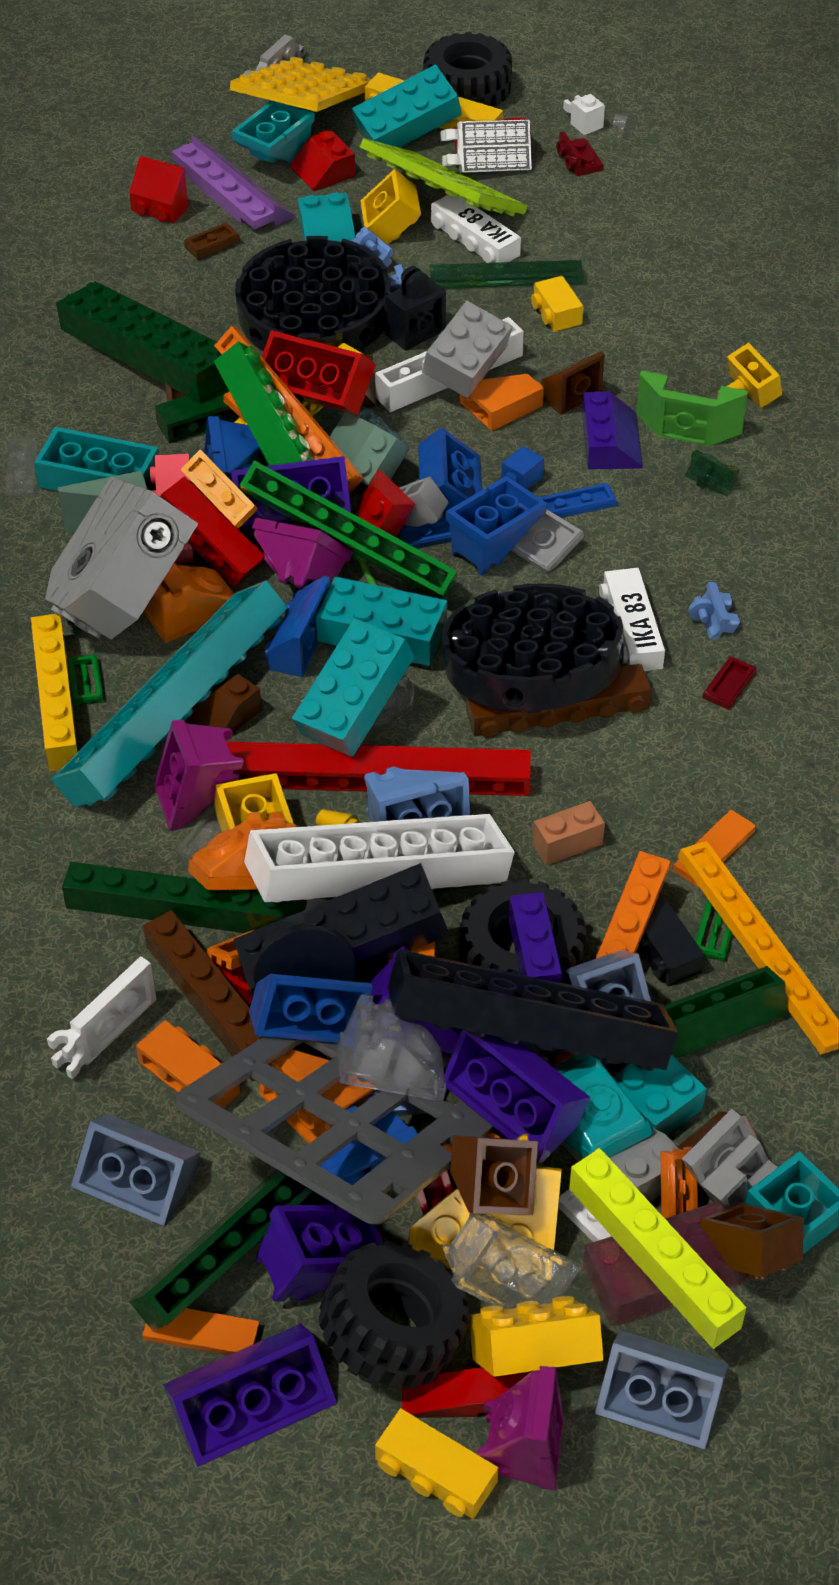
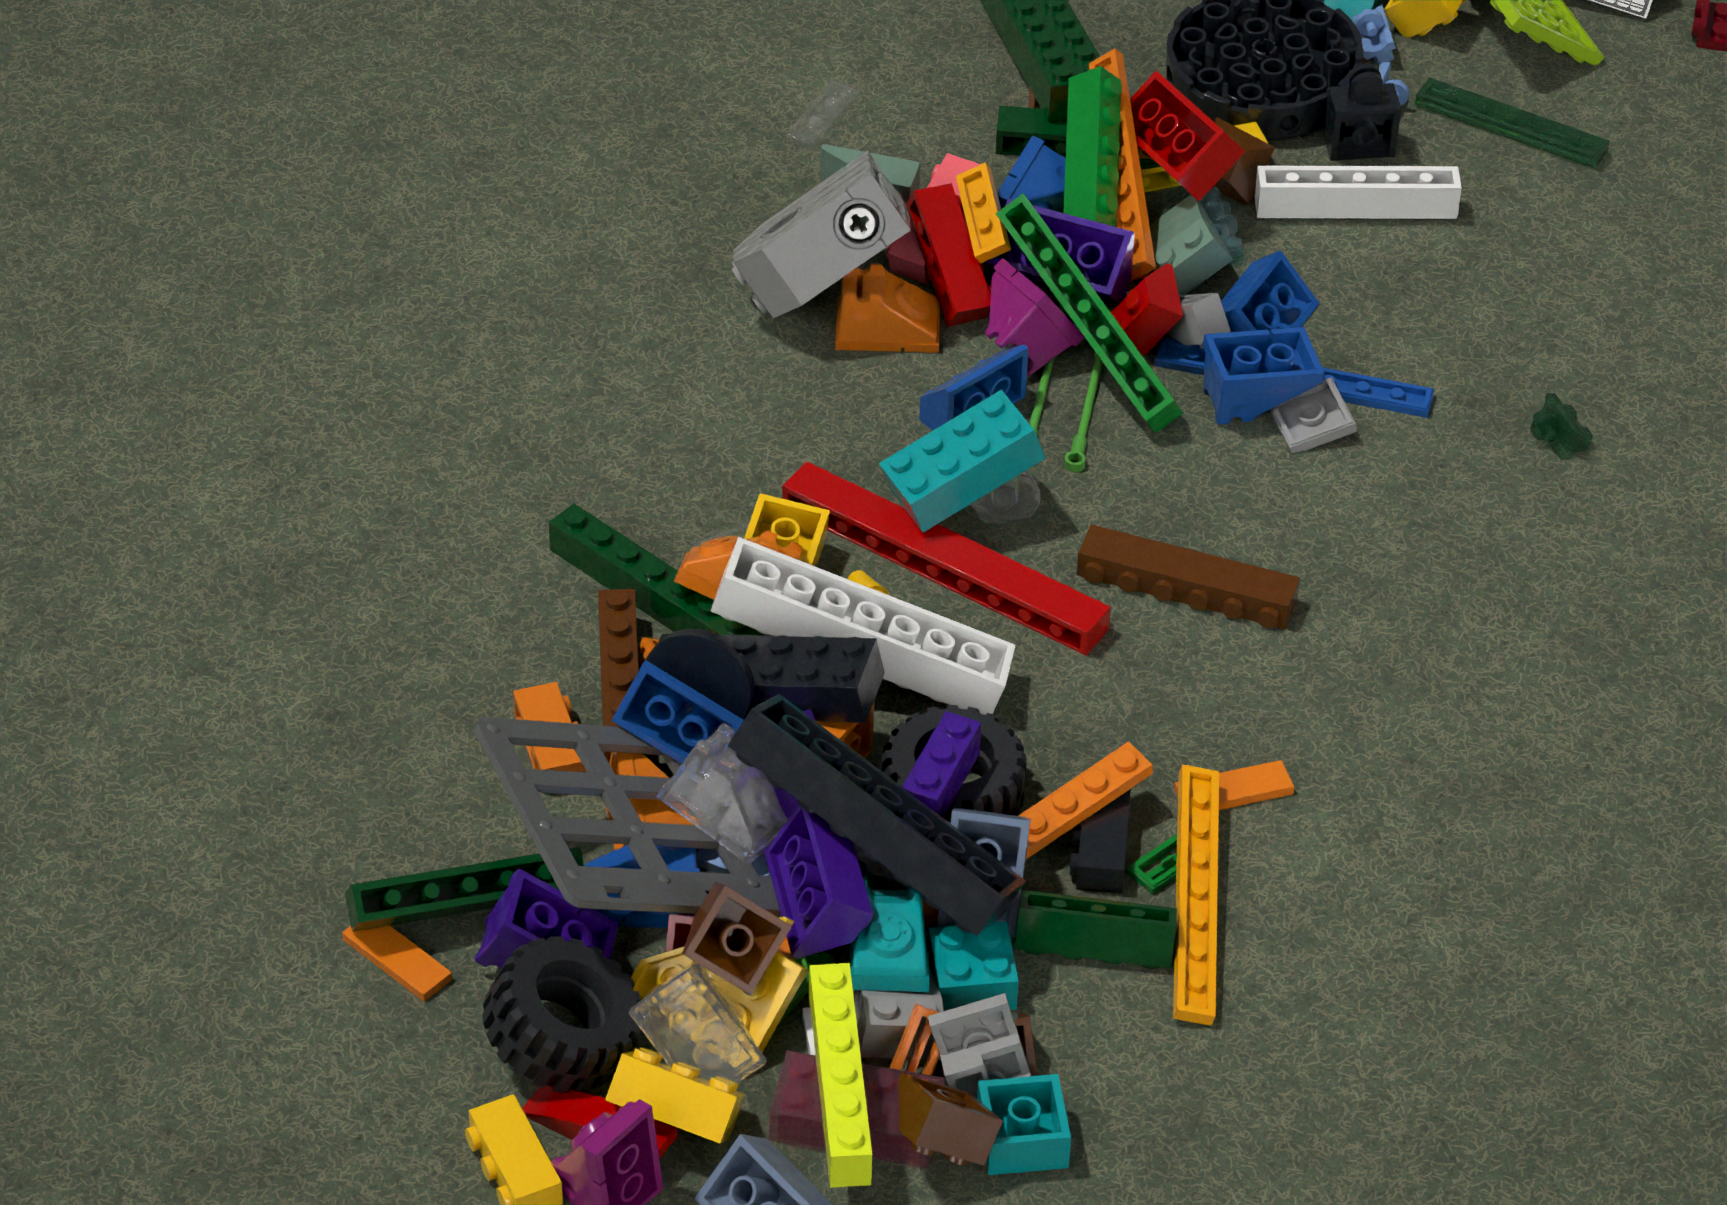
camera: 30 degrees right, 5 degrees down
(54, 690) = (683, 346): yellow brick -> none
(82, 457) = (888, 128): teal brick -> none
(87, 697) = (719, 367): green tile -> none
(104, 1018) = (503, 654): white tile -> none
(134, 1168) = (437, 794): sand blue slope -> none
(169, 696) = (786, 395): teal brick -> none
(190, 768) = (758, 463): magenta piece -> none
(229, 704) = (840, 435): reddish brown slope -> none
(250, 1394) = (397, 1023): dark purple slope -> none
(402, 613) = (1071, 421): teal brick -> none
(416, 794) = (955, 593): medium blue piece -> none
(467, 349) = (1372, 179): light grey brick -> none
(475, 230) = (1515, 63): white brick -> none
(504, 399) = (1390, 253): orange slope -> none
(524, 467) = (1347, 335): blue brick -> none
(533, 658) = (1192, 509): black brick -> none
(557, 303) = (1540, 177): yellow brick -> none
(566, 387) = (1480, 269): reddish brown slope -> none
(568, 833) = (1087, 702): nougat brick -> none
(610, 432) = (1480, 337): dark purple slope -> none
(641, 635) = (1335, 534): white brick -> none
(687, 415) = (1584, 362): bright green slope -> none
(713, 610) = (1431, 578): medium blue hips -> none
(729, 682) = (1392, 643): dark red tile -> none
(754, 375) = (1692, 347): yellow brick -> none

